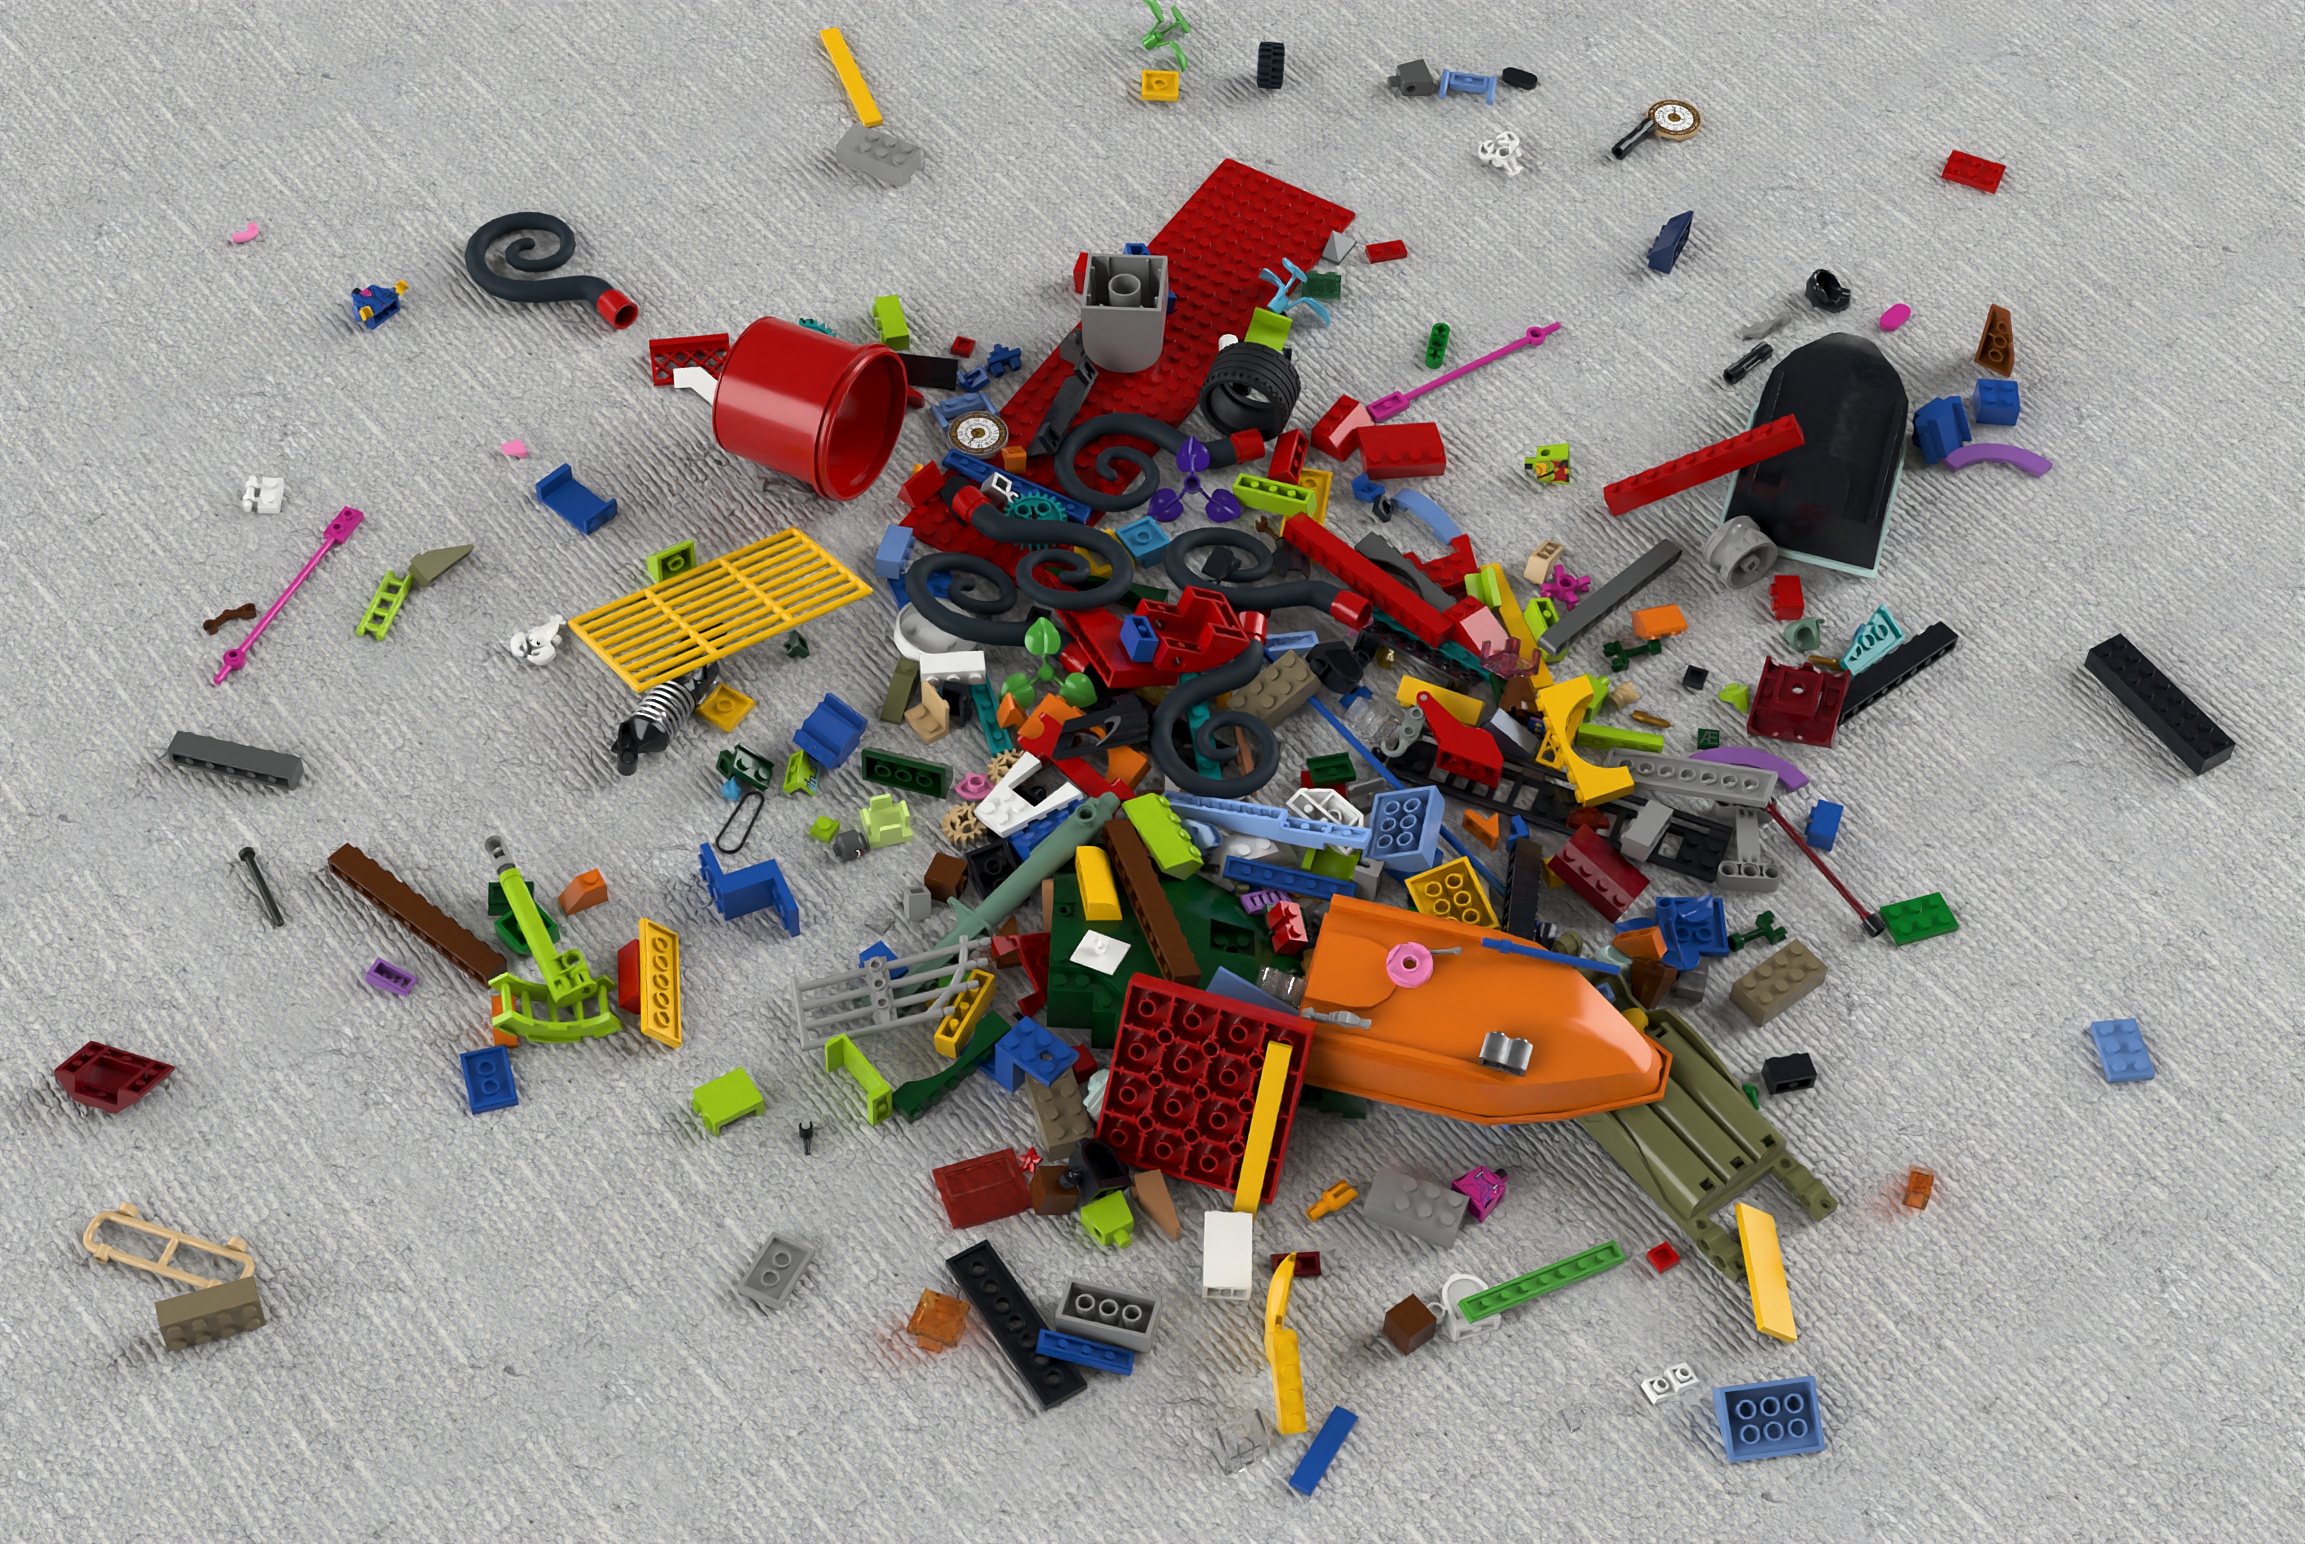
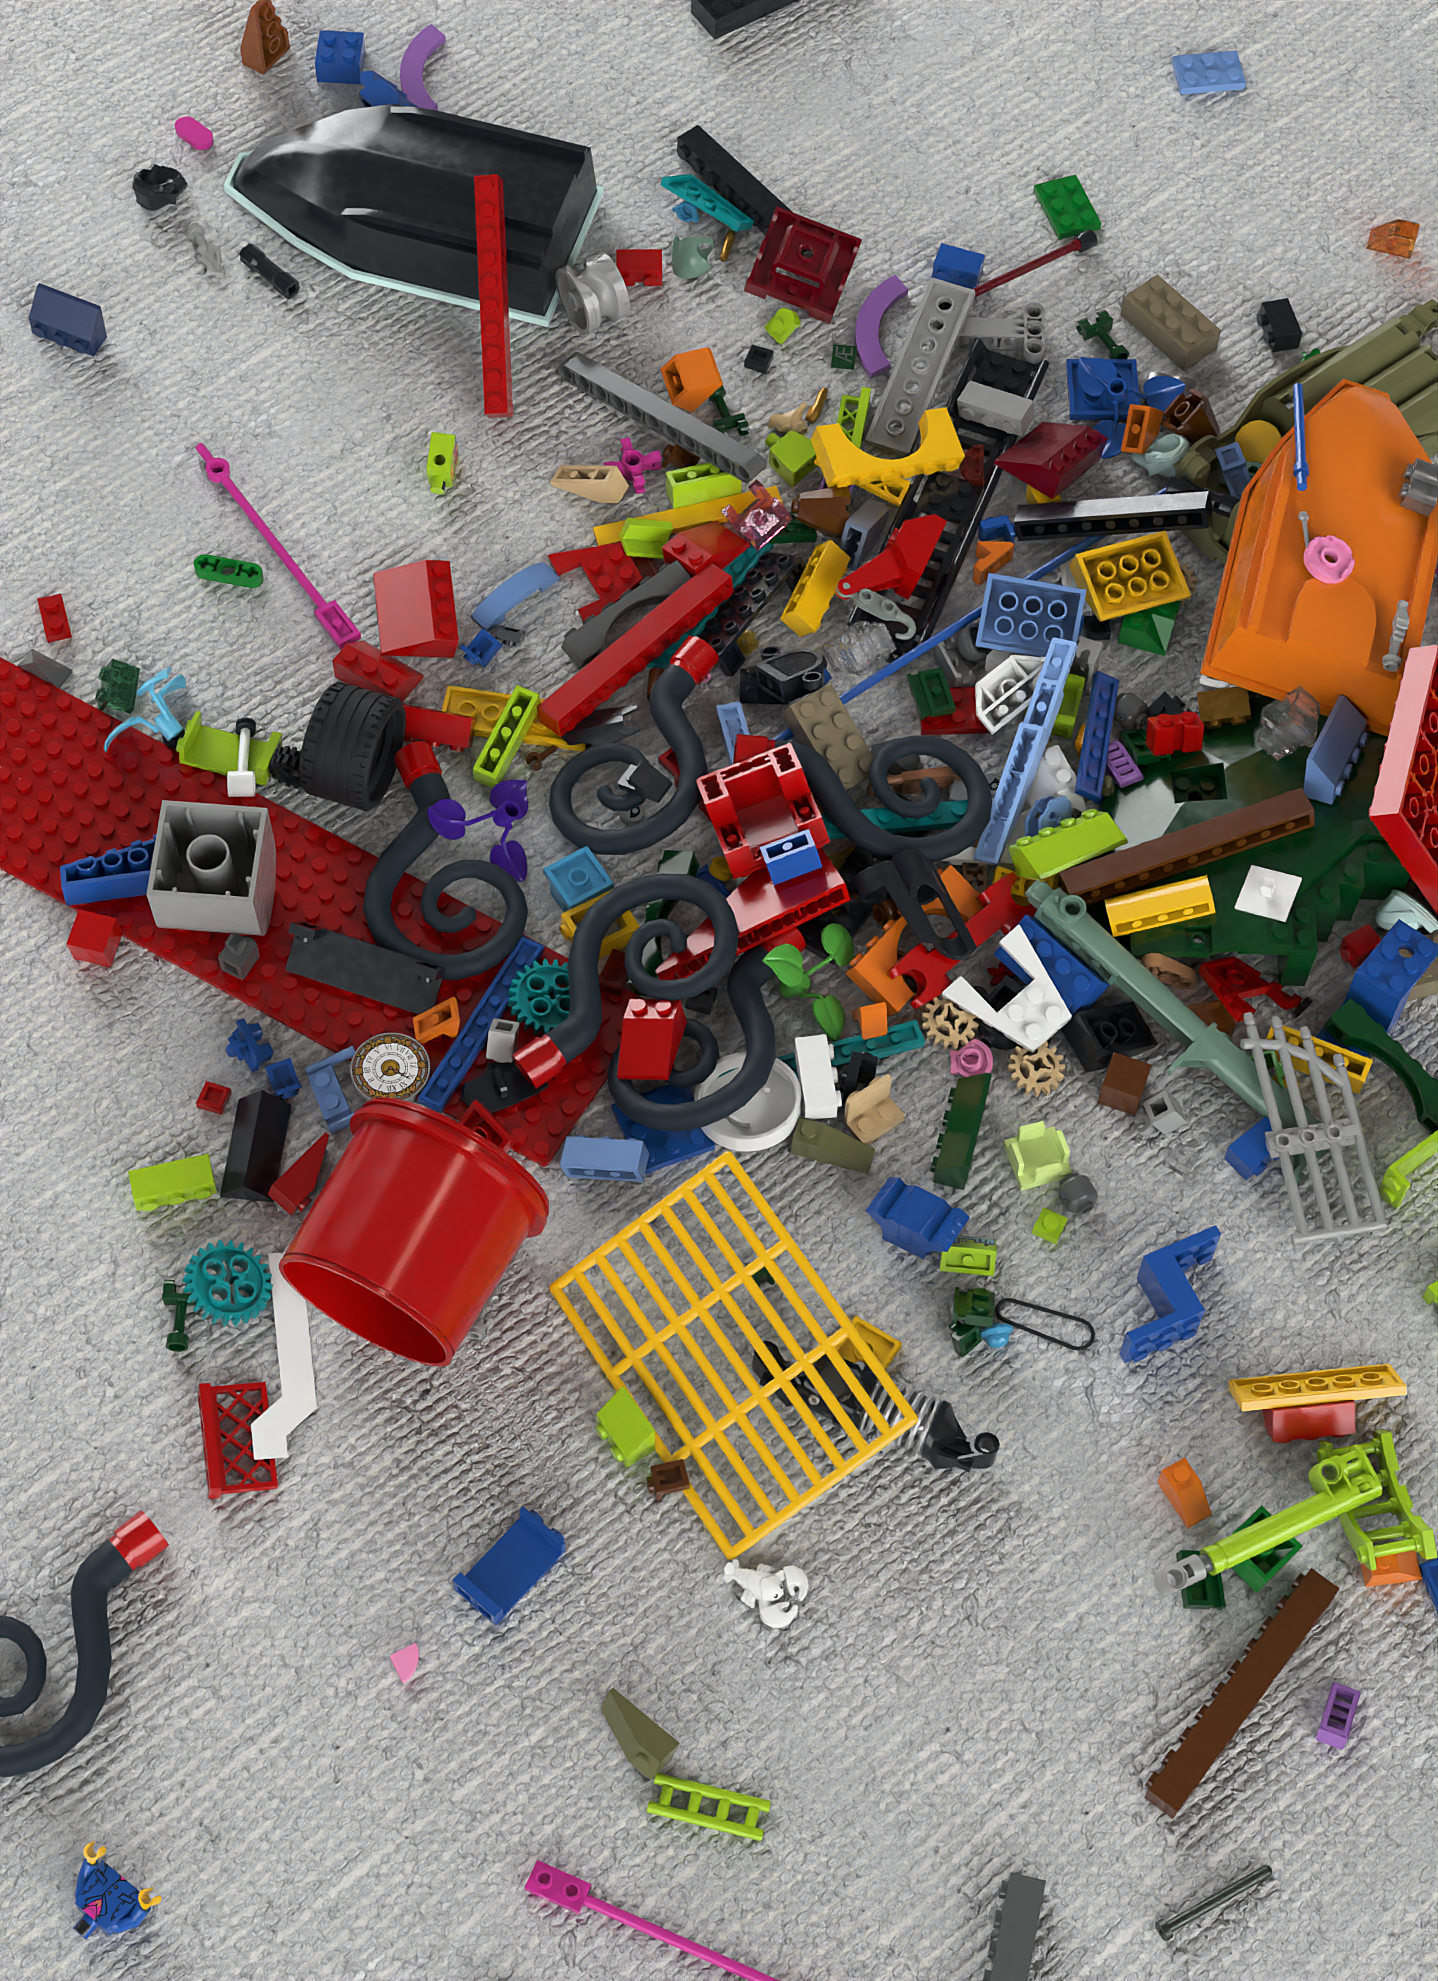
camera: 90 degrees left, 10 degrees up
(630, 582) = (667, 1478): none -> reddish brown bracket
(987, 569) = (650, 1038): none -> red slope

